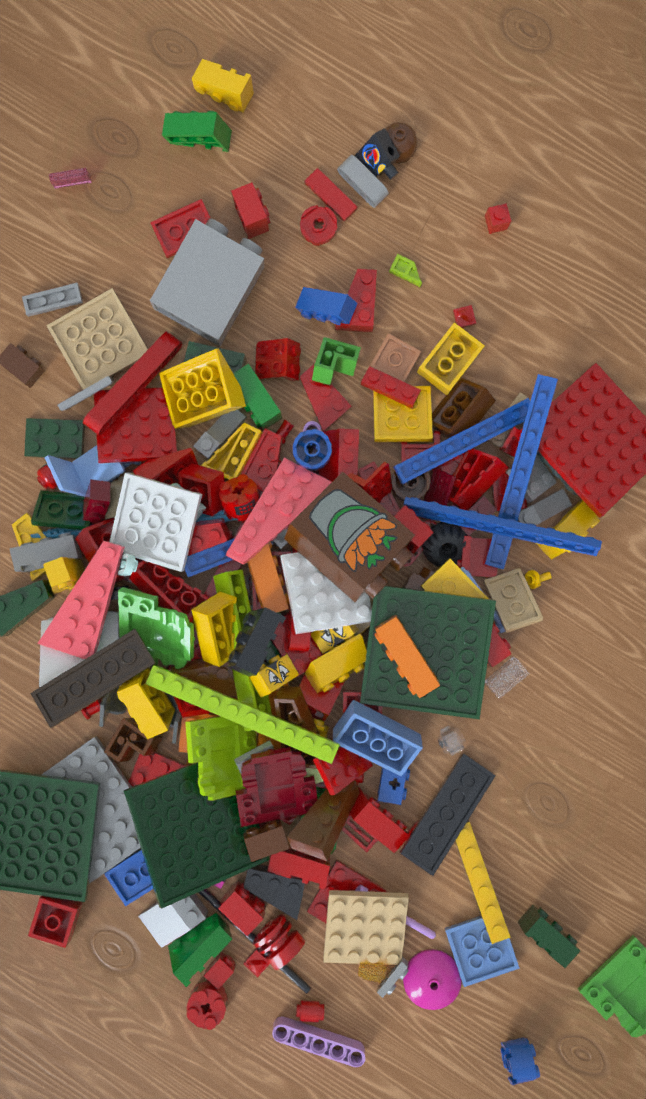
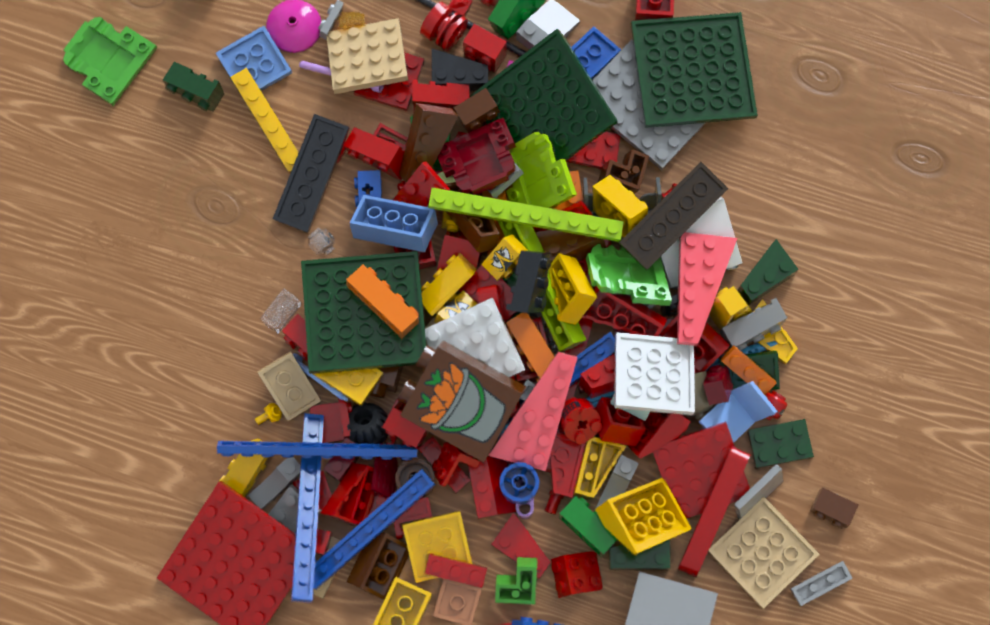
camera: 165 degrees right, 10 degrees down
(64, 510) = (748, 370): none -> orange plate
(127, 565) = (668, 325): light aqua plate -> none

